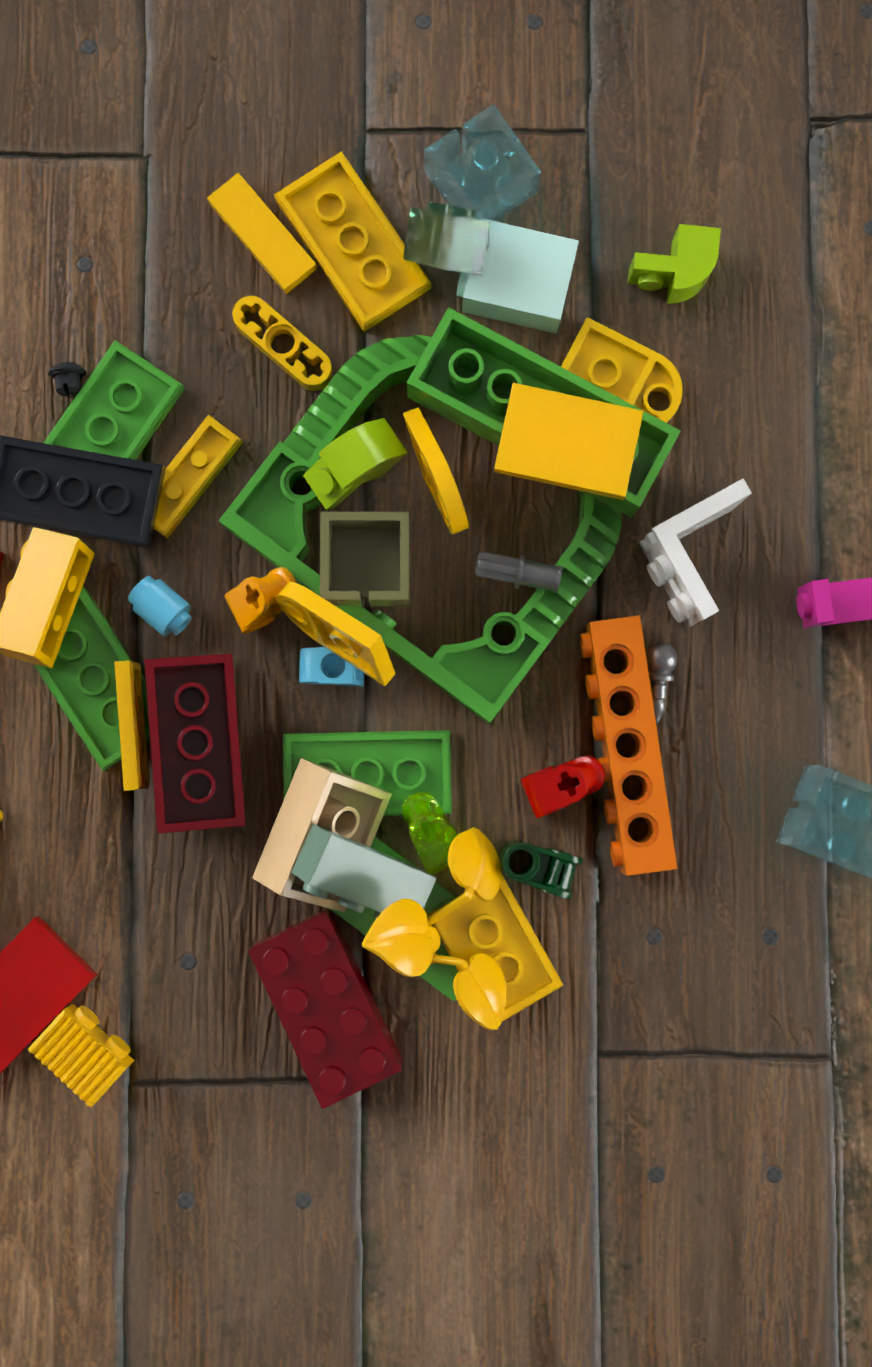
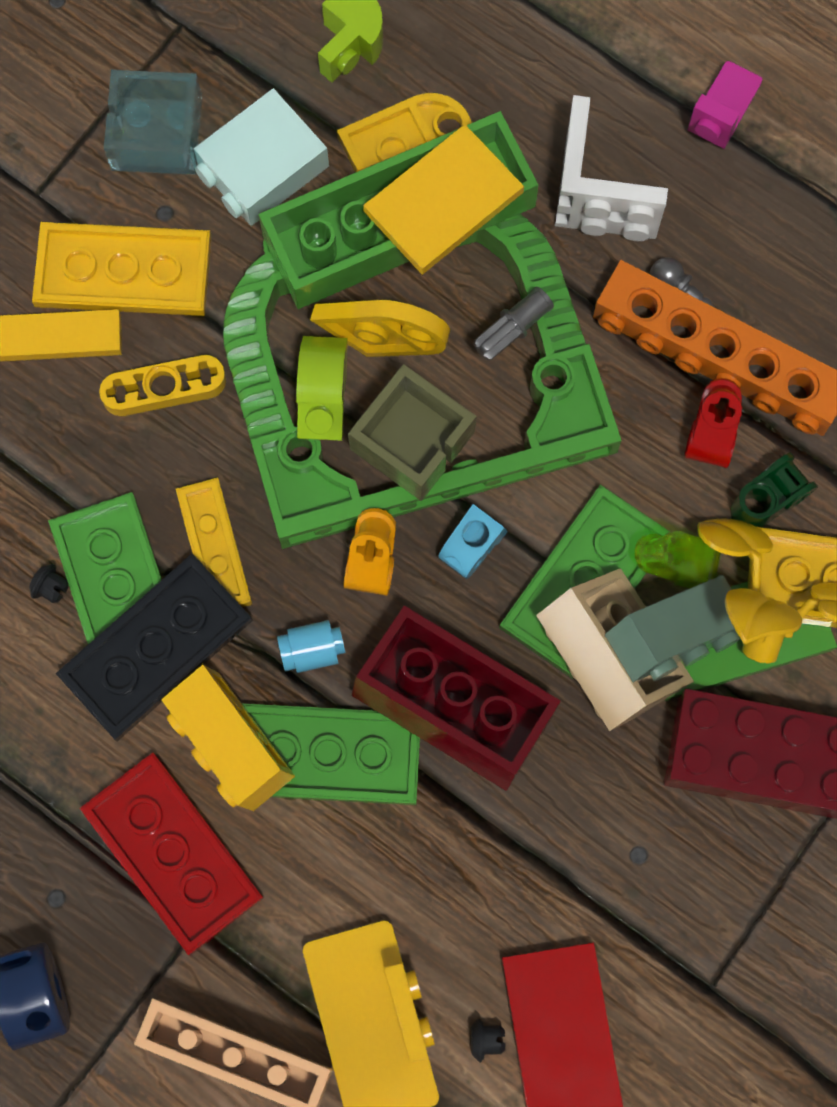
camera: 50 degrees left, 10 degrees down
(82, 1053) = (655, 1000): yellow brick -> none
(132, 725) = (399, 740): yellow tile -> none
(337, 631) = (454, 498): yellow tile -> none
(447, 238) = (191, 186): clear green brick -> none

